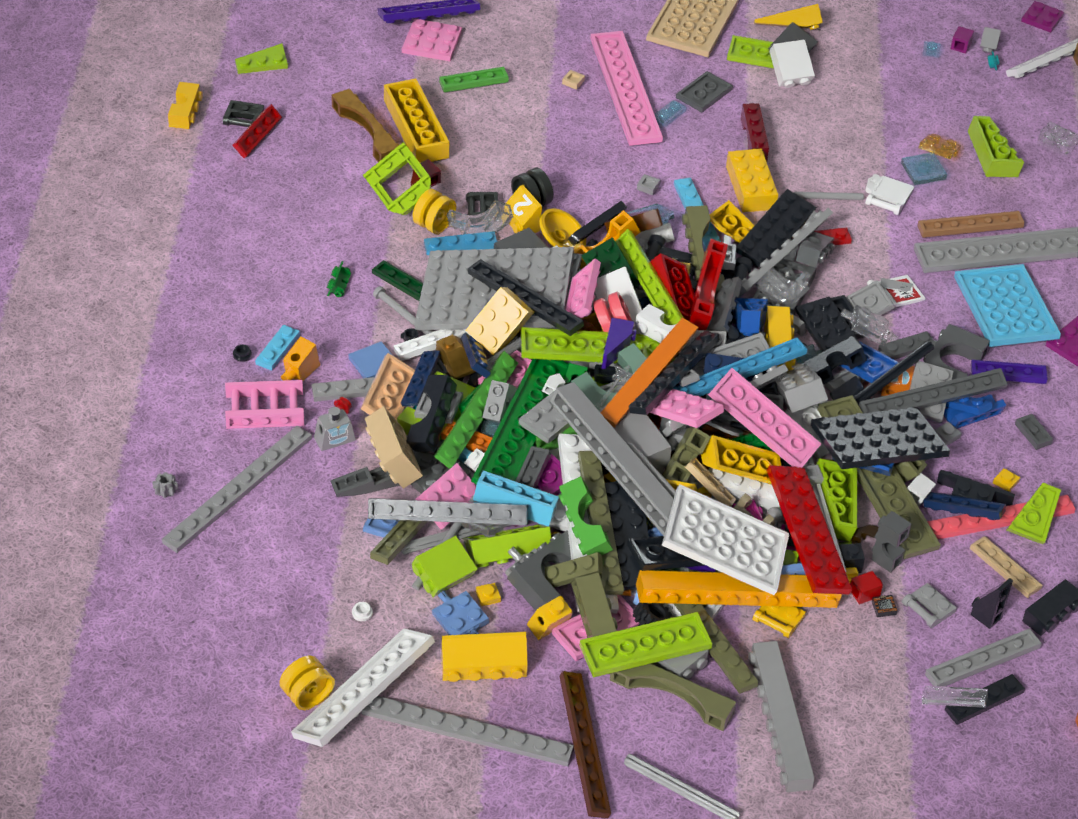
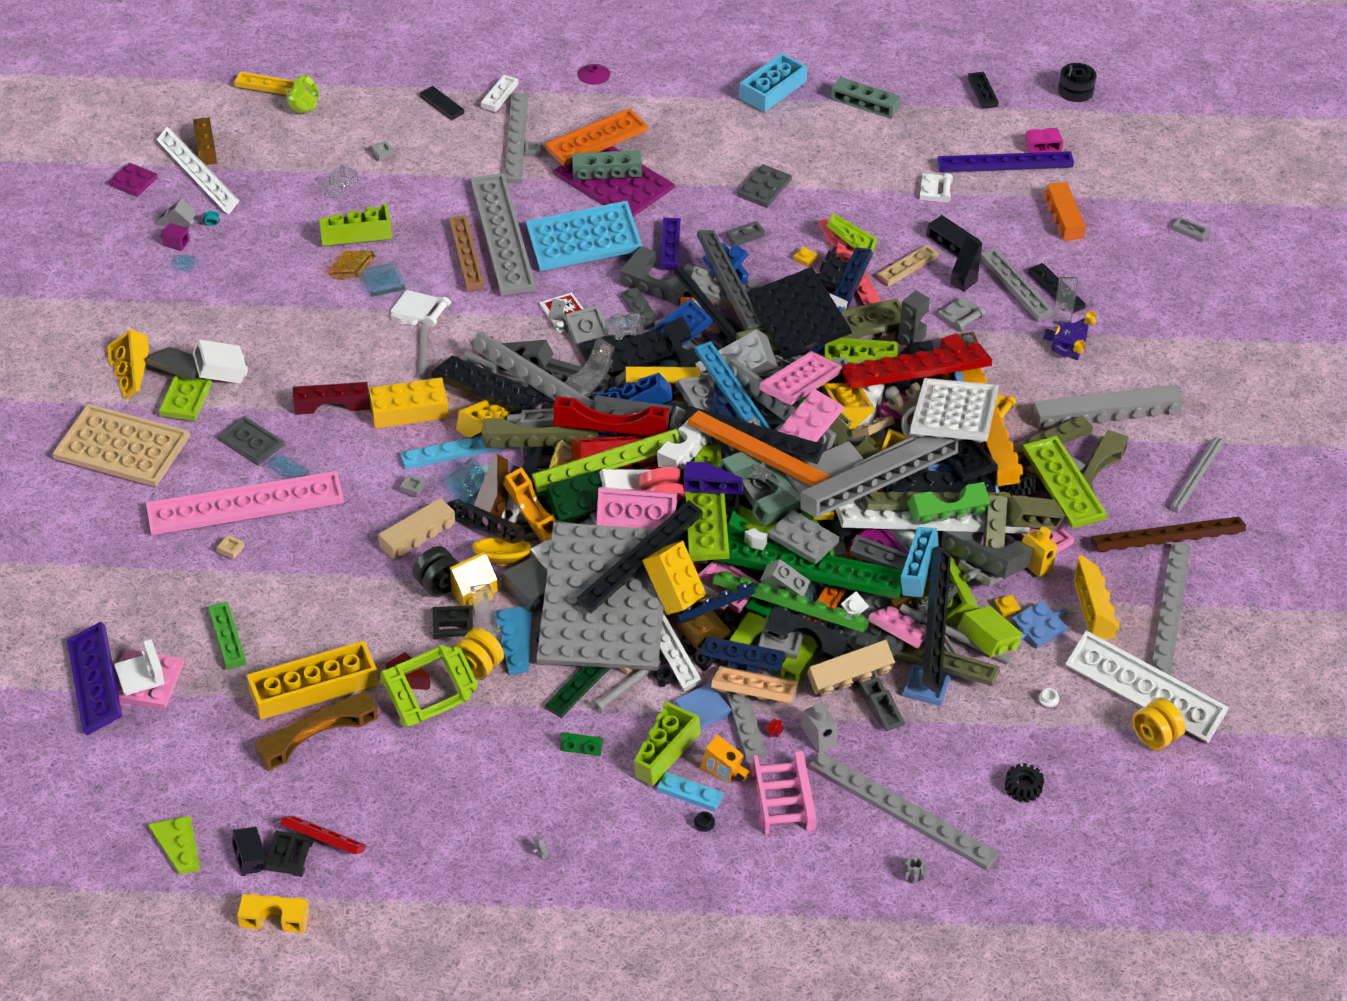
camera: 90 degrees left, 0 degrees up
(226, 250) = (540, 847): none -> light grey piece
(247, 89) = (248, 850): none -> black hinge
(255, 586) = (1026, 773): none -> black tyre
(326, 327) = (667, 741): none -> lime wedge
(429, 28) = (140, 672): none -> white bracket
(591, 183) = (416, 529): none -> tan brick
(890, 694) = (1071, 337): none -> torso

